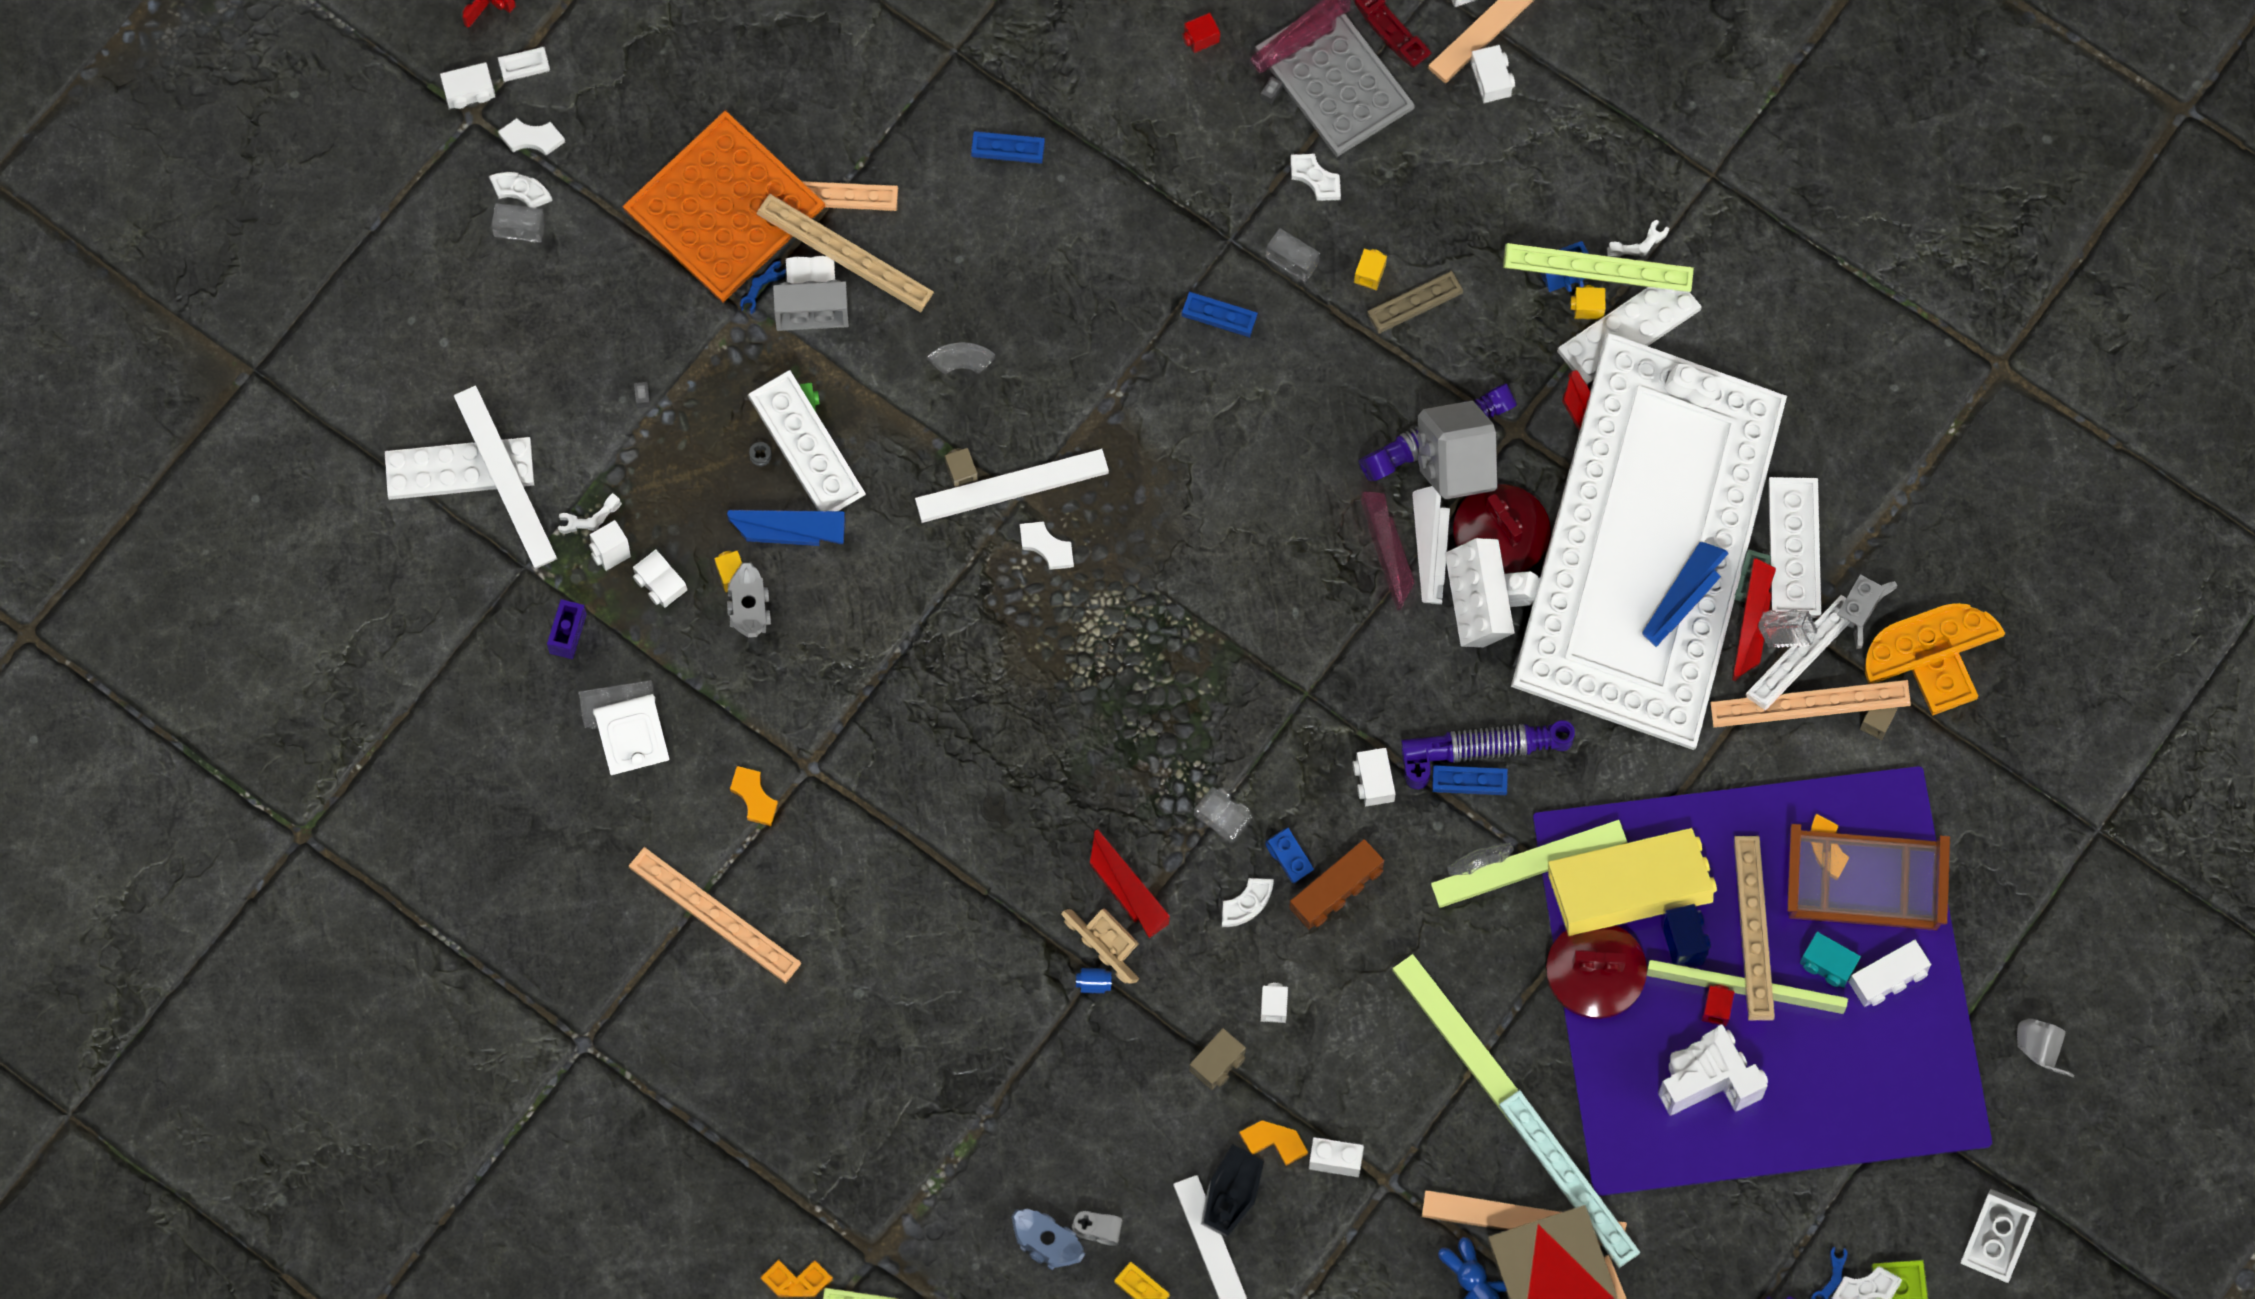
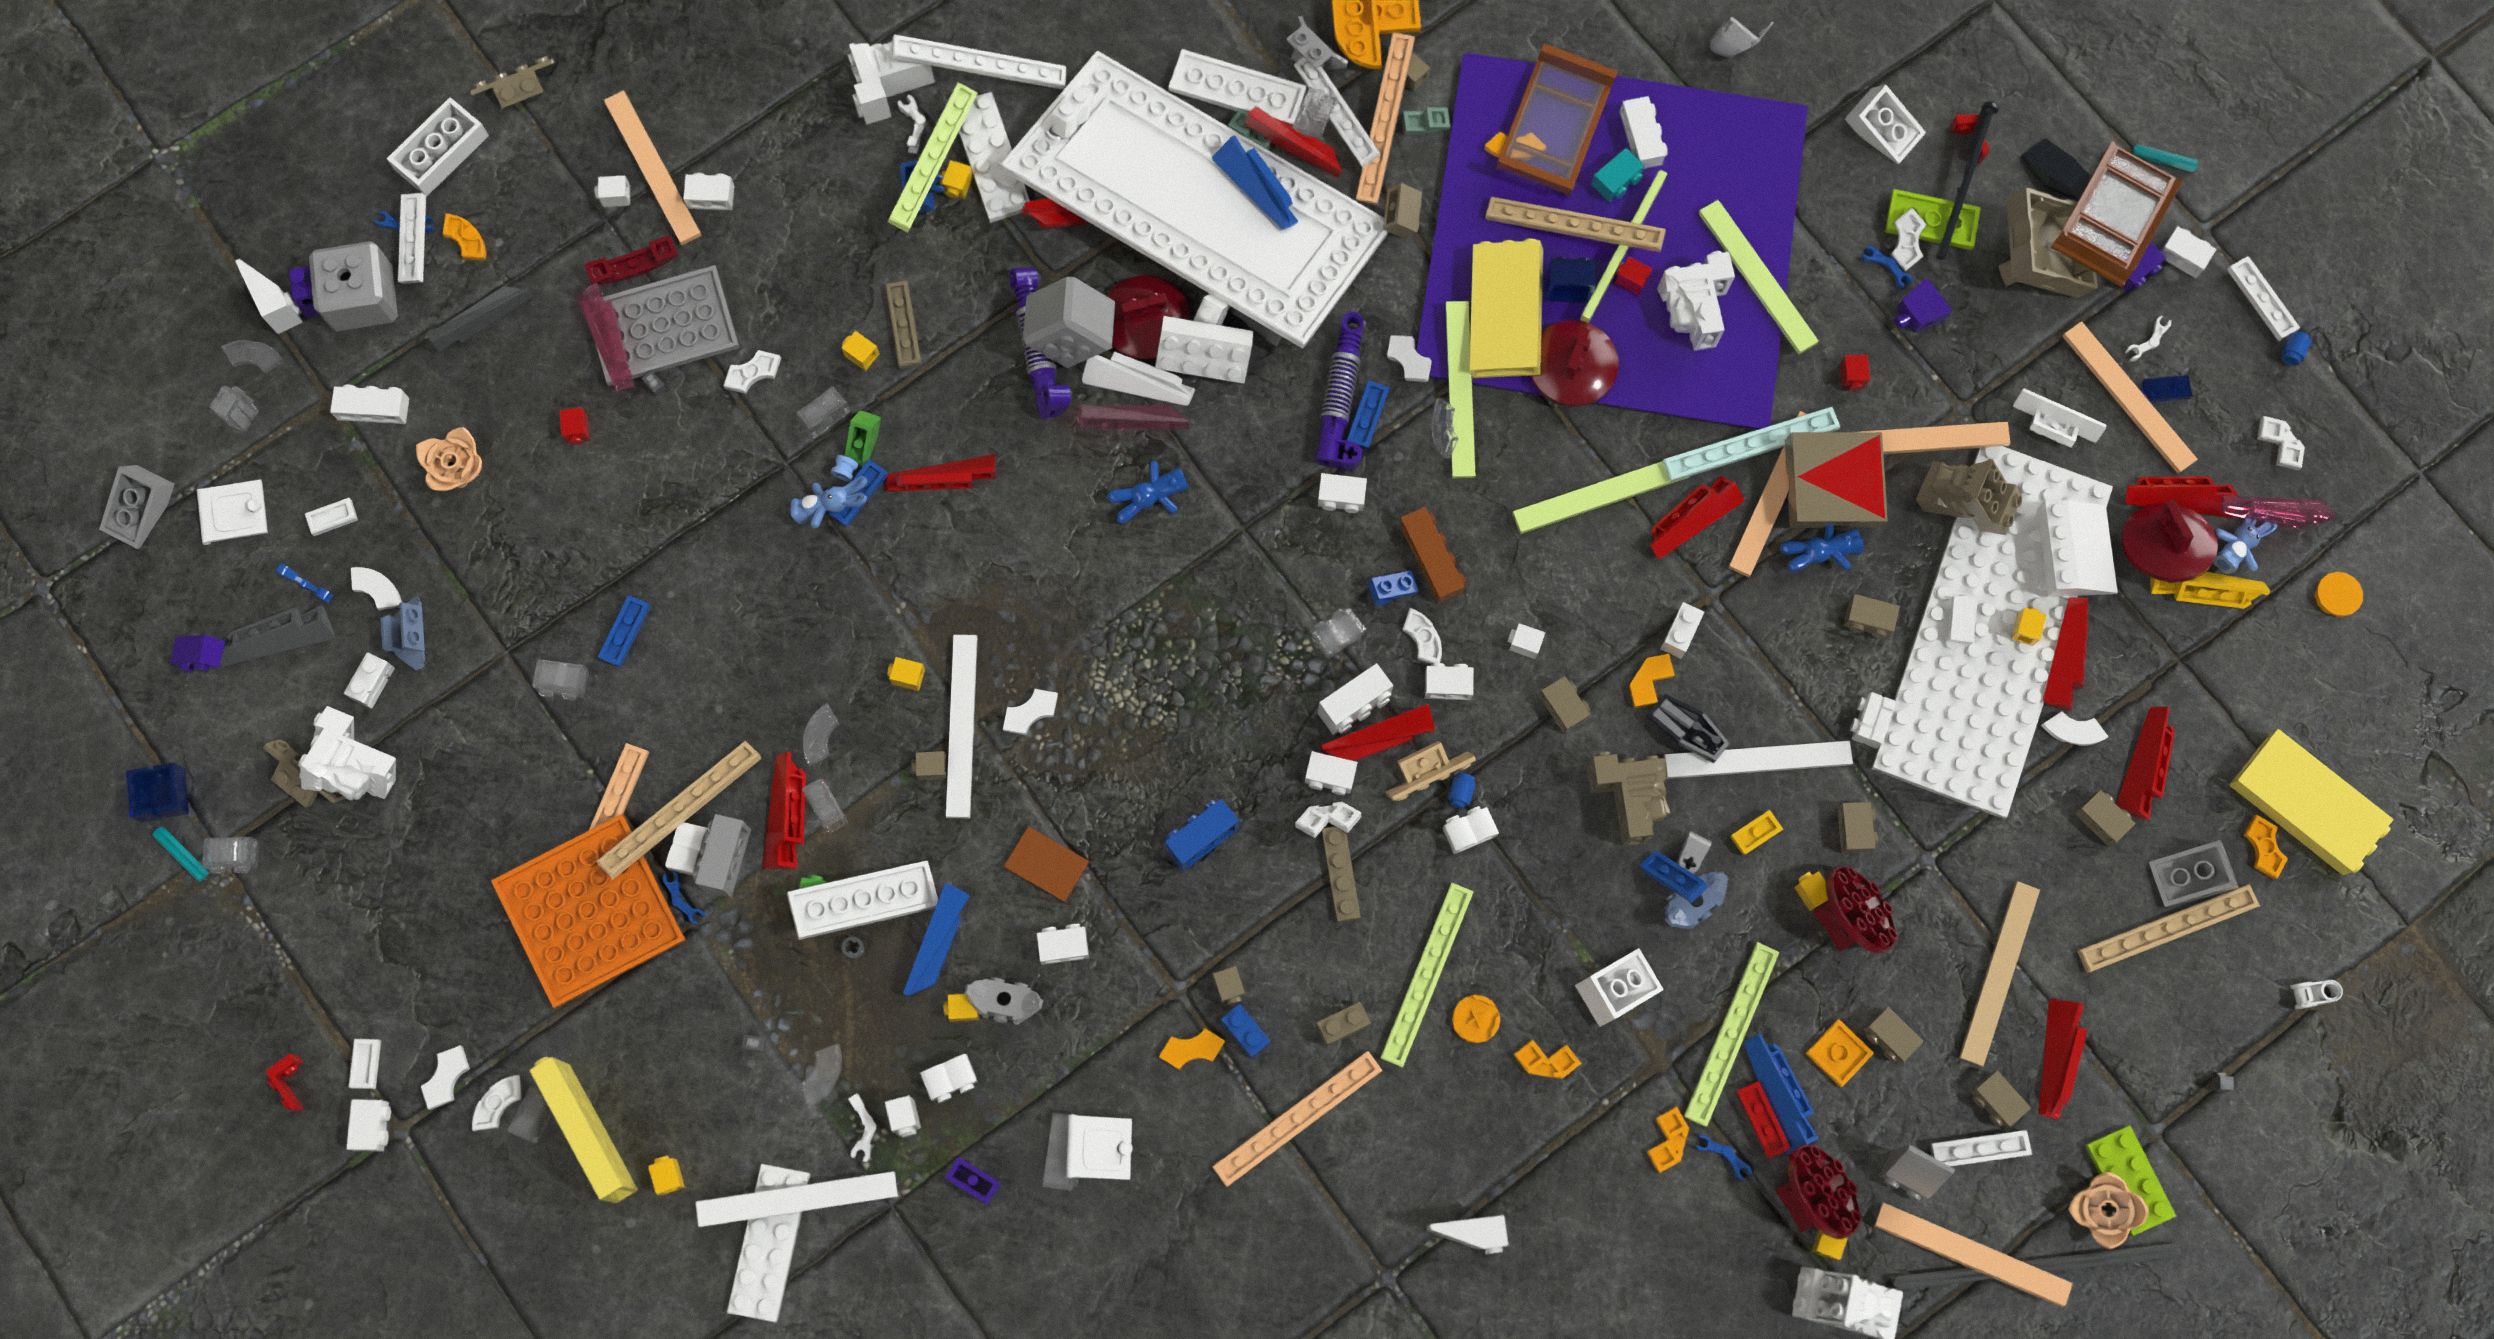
camera: 75 degrees left, 5 degrees up
(494, 357) = (666, 1175): none -> yellow brick
(513, 267) = (583, 1130): none -> light yellow brick
(630, 467) = (824, 1076): none -> clear tile
(650, 1118) = (1478, 1233): none -> white slope
(784, 838) = (1245, 1031): none -> blue brick
(819, 929) = (1343, 1024): none -> dark tan brick
(820, 644) = (1063, 944): none -> white brick
(826, 811) = (1229, 986): none -> dark tan brick
(839, 1150) = (1536, 1063): none -> light orange tile
(864, 1059) = (1476, 1019): none -> light orange tile
(871, 352) = (785, 815): none -> red wedge
(890, 383) = (825, 805): none -> clear brick
(895, 999) = (1426, 975): none -> yellowish green tile
(896, 606) = (1046, 864): none -> dark orange tile
(937, 1189) = (1619, 987): none -> white slope
(941, 105) = (560, 679): none -> clear brick
(967, 738) = (1201, 834): none -> blue brick
(973, 888) = (1340, 874): none -> dark tan plate
(1023, 848) = (1317, 817): none -> white tile
(1047, 417) = (906, 673): none -> yellow brick
(1055, 1000) = (1470, 830): none -> white brick
(1065, 1208) = (1673, 876): none -> blue plate
(1072, 848) = (1330, 773): none -> white brick
(1143, 1151) = (1637, 792): none -> dark tan brick
(1153, 847) = (1355, 700): none -> white brick
(1200, 289) = (833, 499): none -> medium blue animal
(1204, 937) = (1449, 682): none -> white brick
(1240, 293) = (844, 468): none -> light blue wheel
(1266, 390) = (944, 476): none -> red wedge
(1279, 299) = (862, 437): none -> bright green slope
(1309, 587) = (1146, 494): none -> blue animal
(1470, 1140) = (1694, 514): none -> red wedge
(1553, 796) = (1403, 351): none -> white tile
(1680, 193) = (882, 77): none -> white brick
(1690, 1269) = (1854, 372): none -> red brick
(1710, 751) = (1402, 210): none -> dark tan brick
(1721, 280) = (978, 62): none -> white tile
(1765, 1139) = (1758, 277): none -> yellowish green tile
(1827, 750) = (1424, 122): none -> sand green slope

